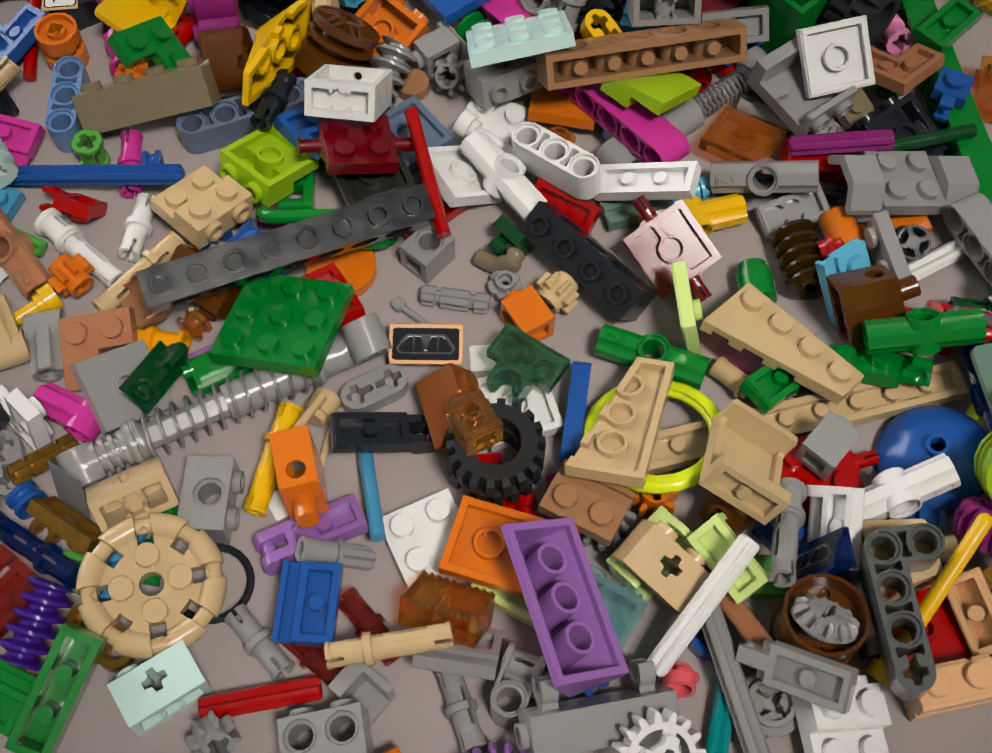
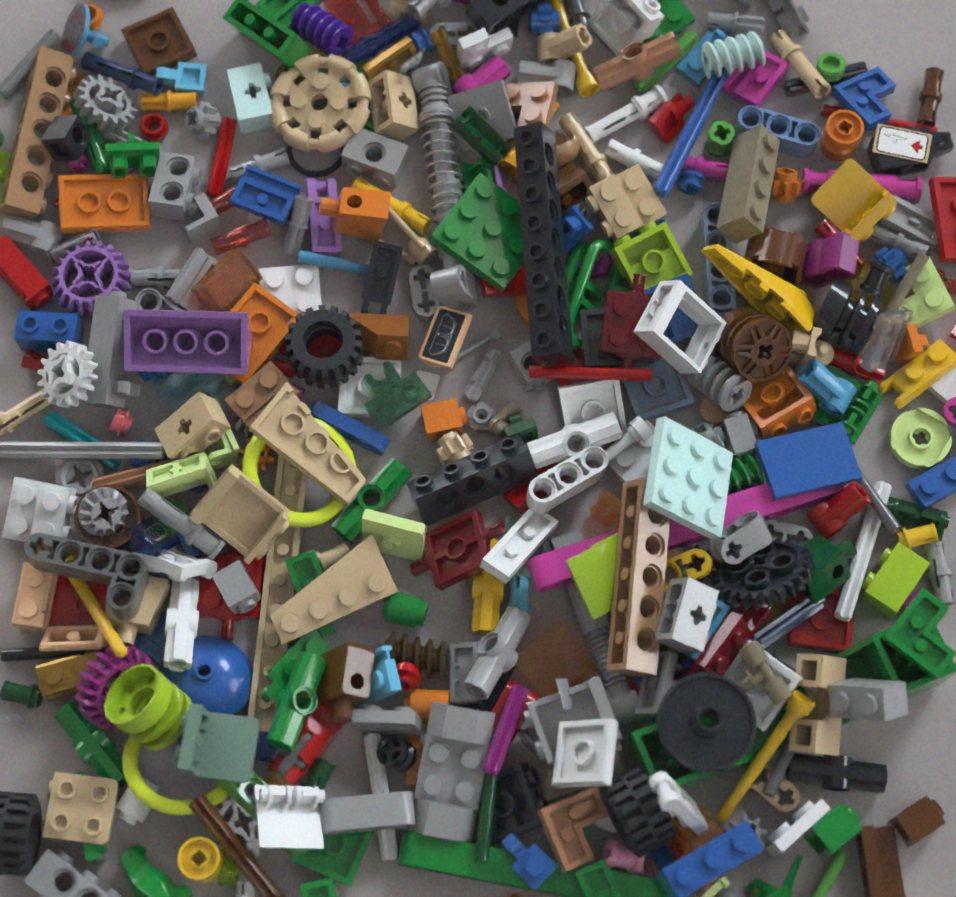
camera: 110 degrees right, 10 degrees up
(71, 275) = (597, 100): orange gear -> none
(146, 42) = (813, 204): green plate -> none
(273, 100) = (708, 277): black pin -> none
(388, 645) = (213, 222): tan pin -> none
(473, 432) = (333, 331): clear orange brick -> none
(703, 603) = (151, 439): white axle -> none
(801, 673) = (78, 481): light grey hinge -> none

